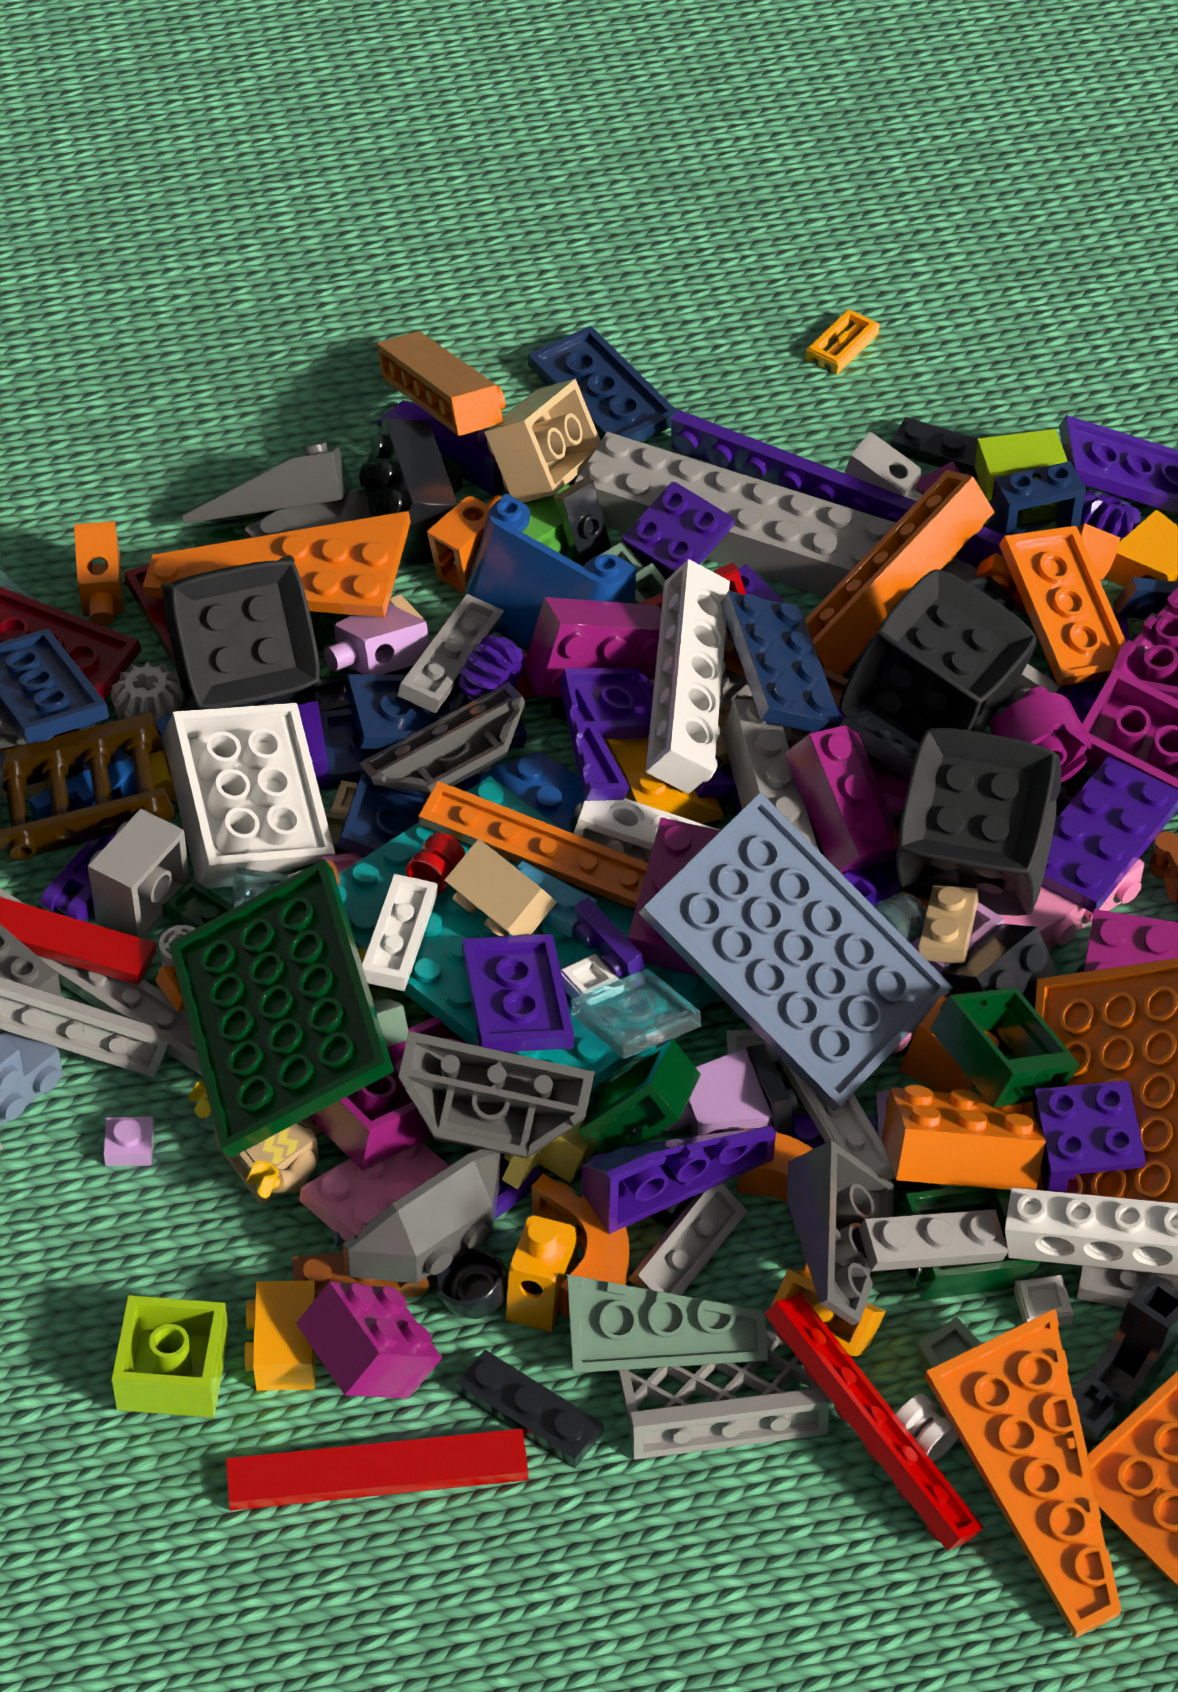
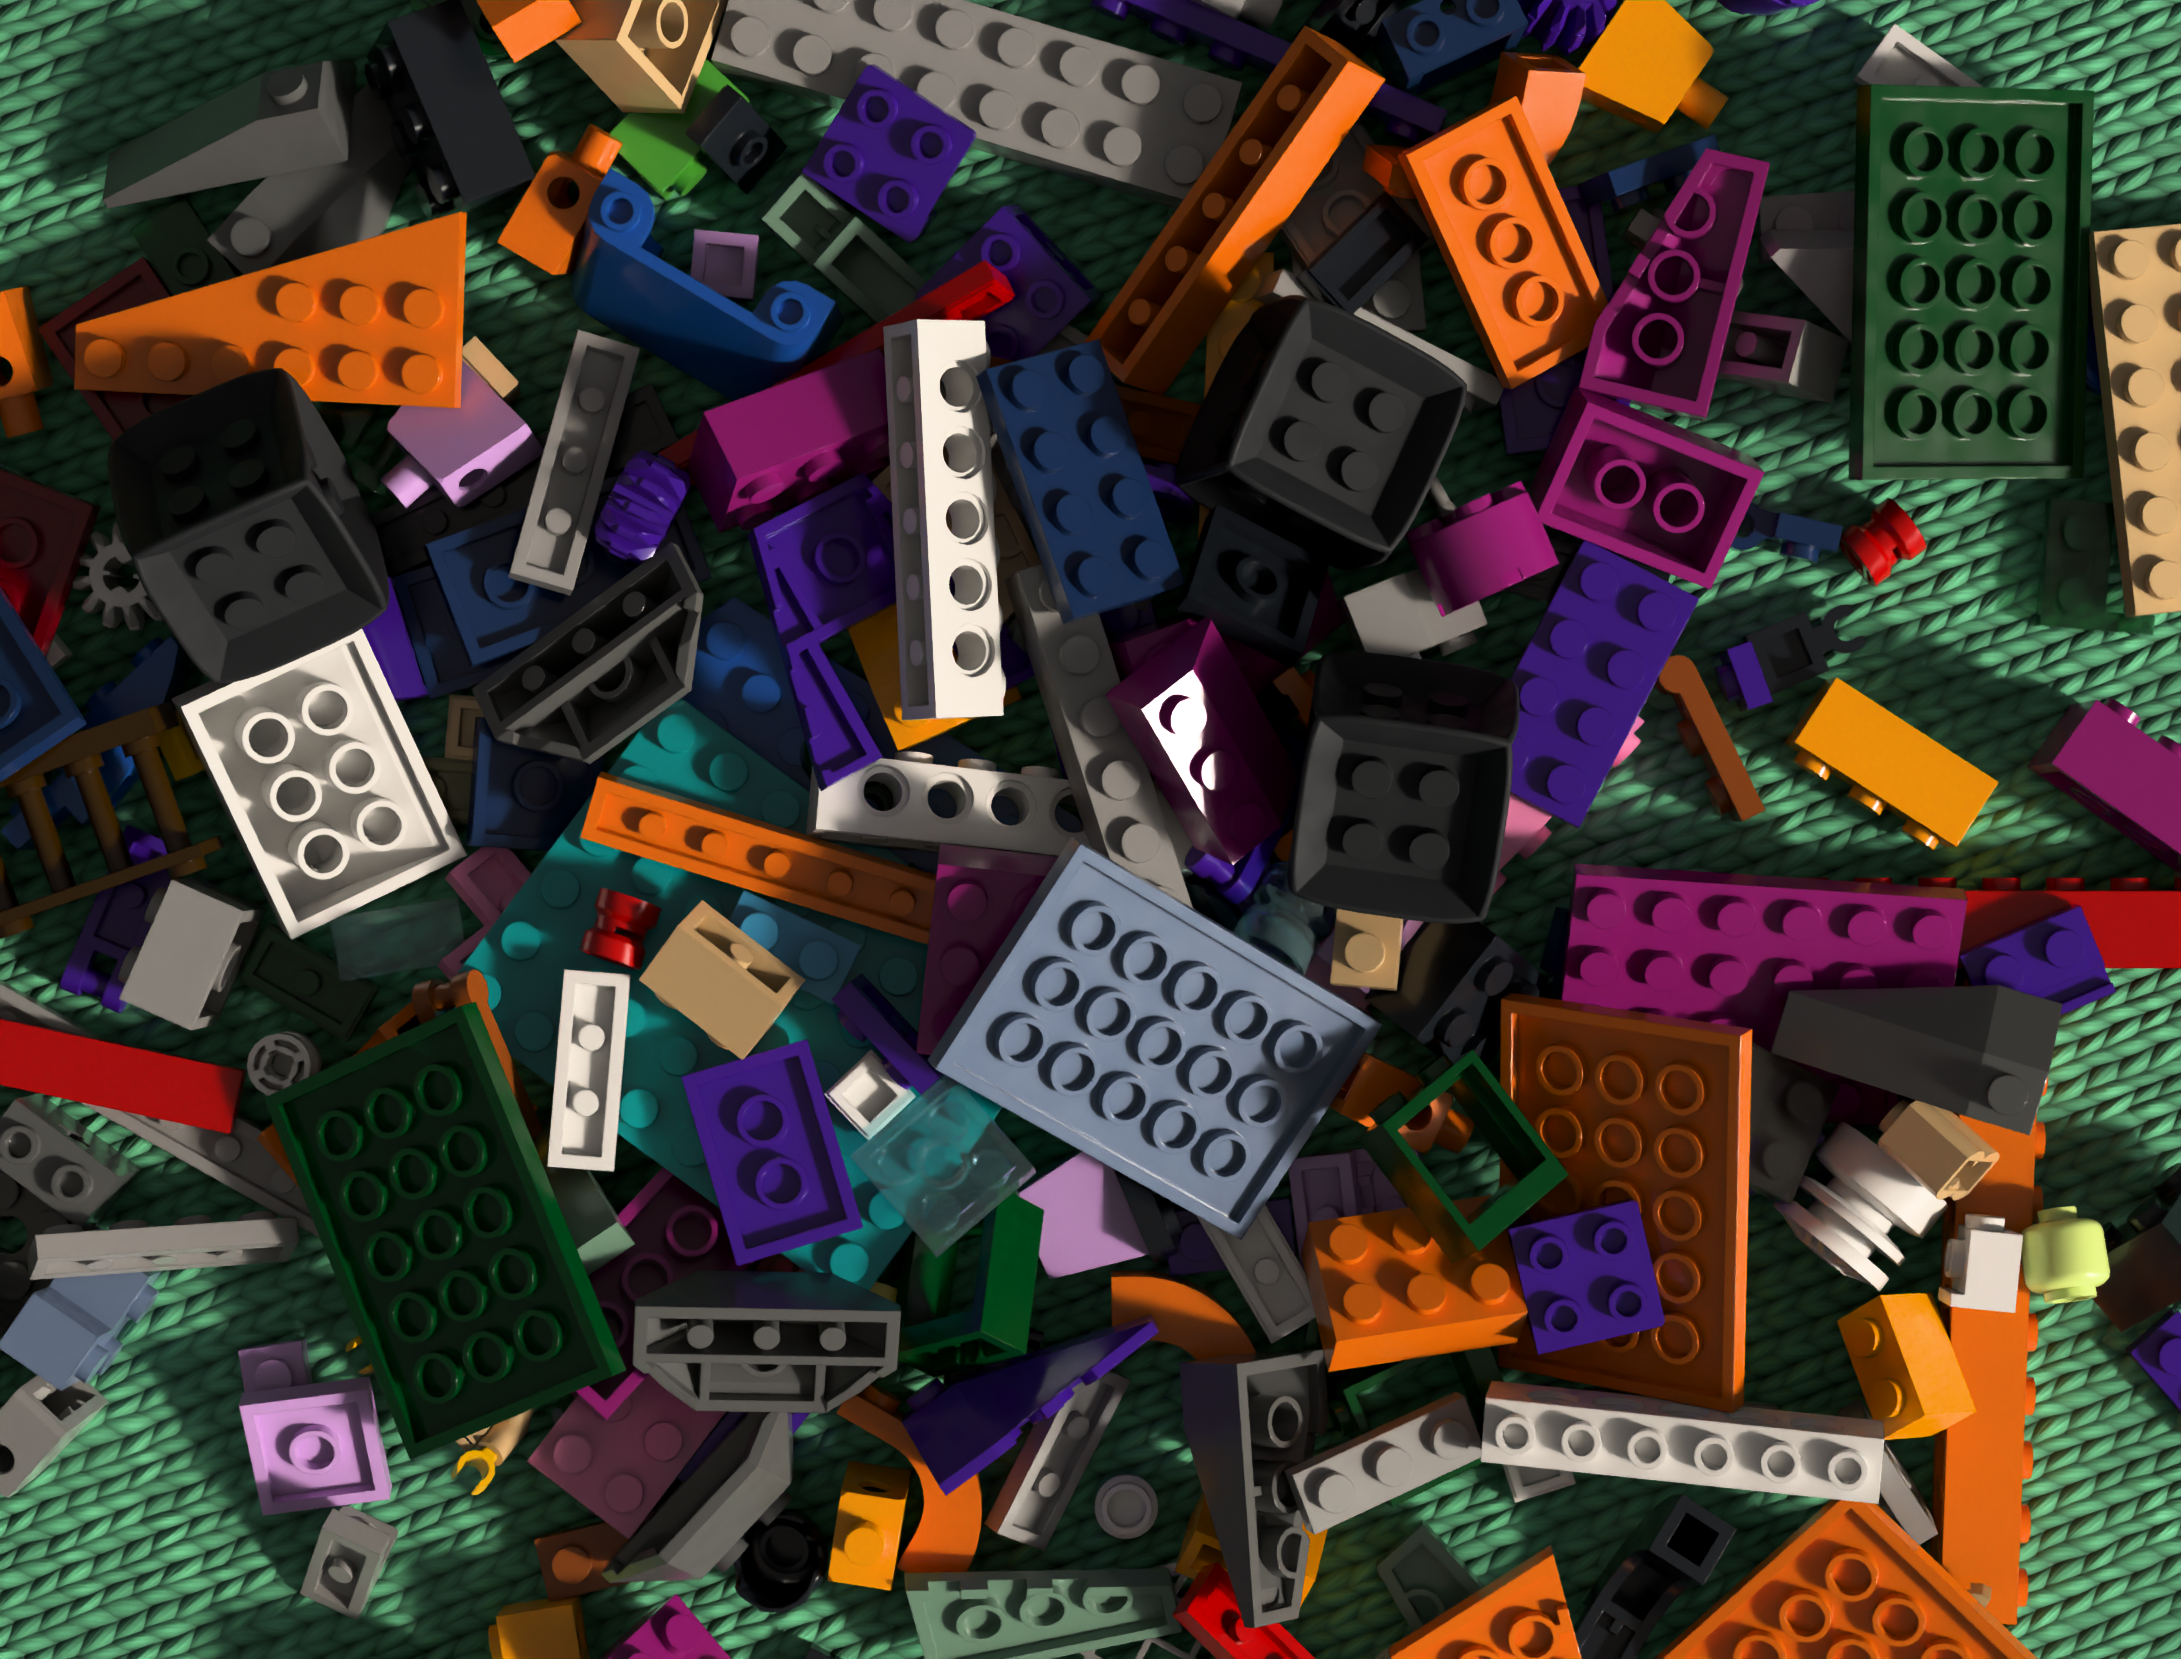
camera: 10 degrees left, 40 degrees up
(148, 1171) = (315, 1445): none -> lavender plate
(153, 1246) = (348, 1560): none -> light grey slope
(735, 1287) = (1126, 1506): none -> white plate

